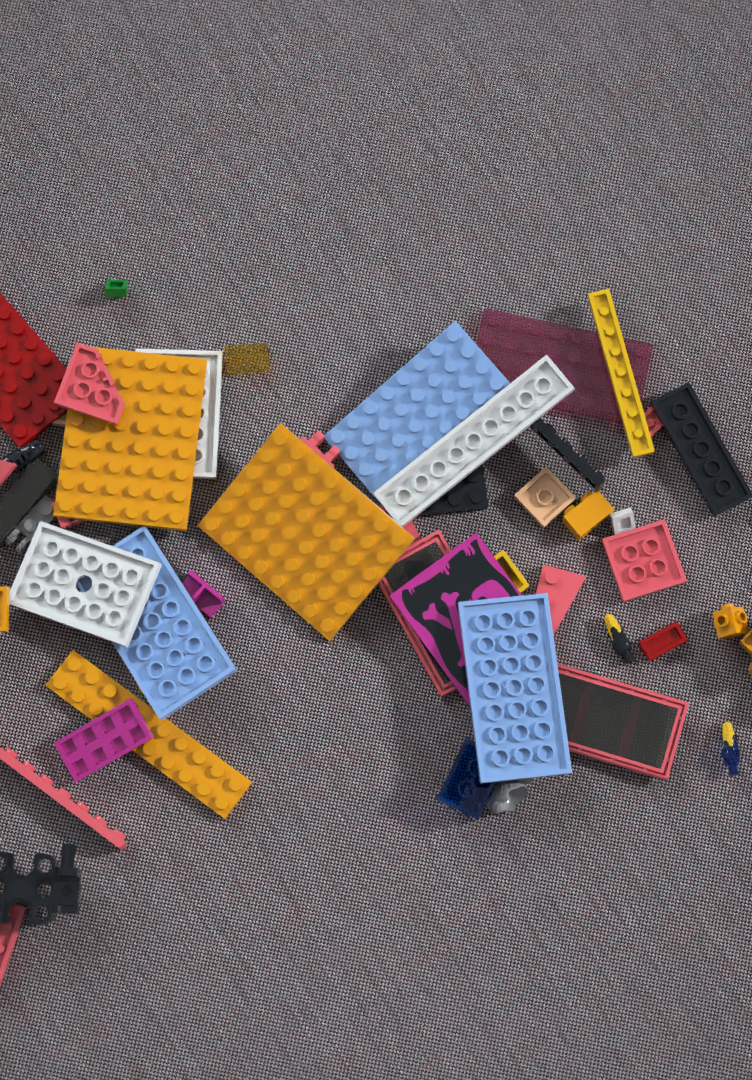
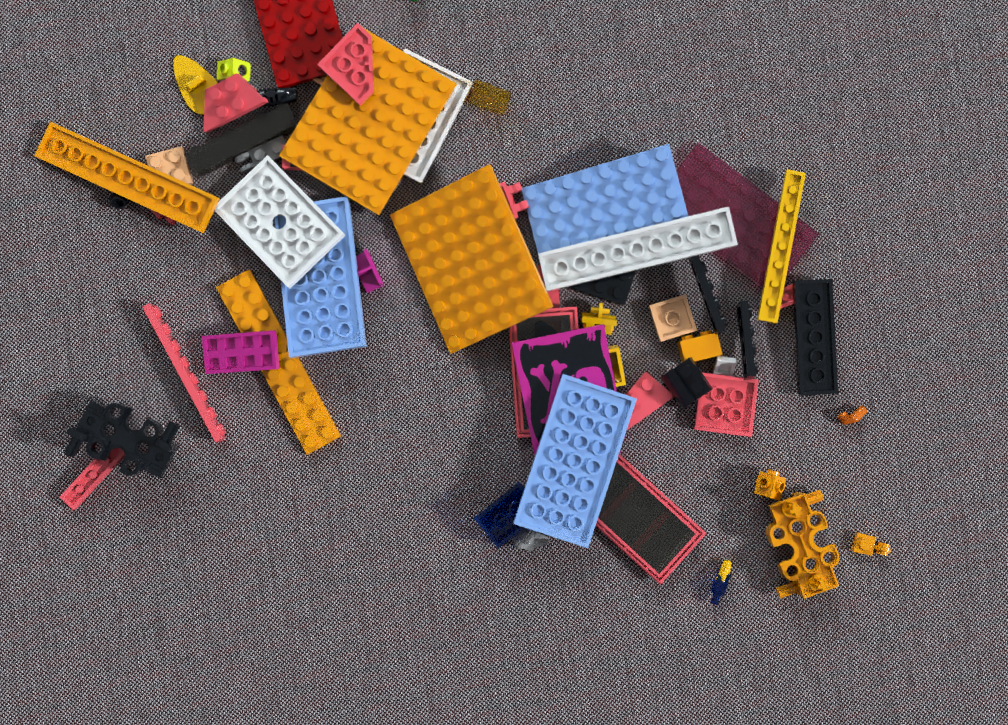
camera: 20 degrees right, 10 degrees up
(460, 536) = (592, 318): none -> yellow hips
(591, 556) = (686, 383): none -> black brick
(618, 638) = (676, 460): black piece -> none
(628, 478) = (746, 332): none -> black plate
(662, 641) = (709, 474): red tile -> none

